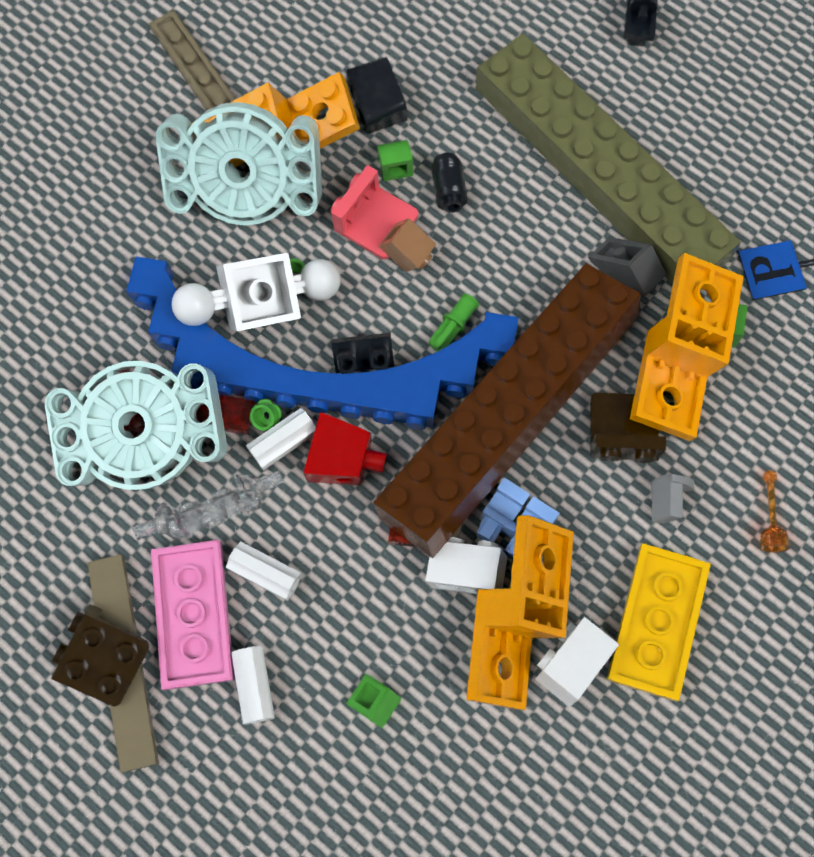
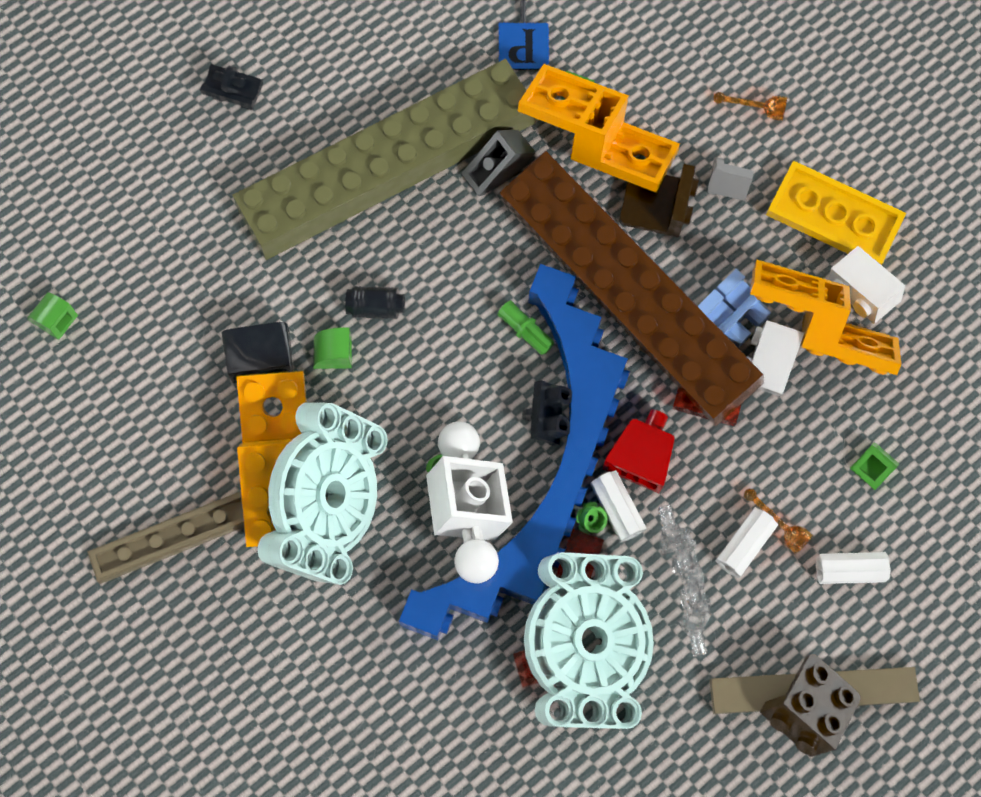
camera: 85 degrees left, 0 degrees up
(192, 615) = (779, 616): bright pink piece -> none
(278, 620) = (795, 536): none -> clear orange hinge
(369, 212) = (397, 379): coral bracket -> none
(408, 245) = (439, 351): medium nougat brick -> none

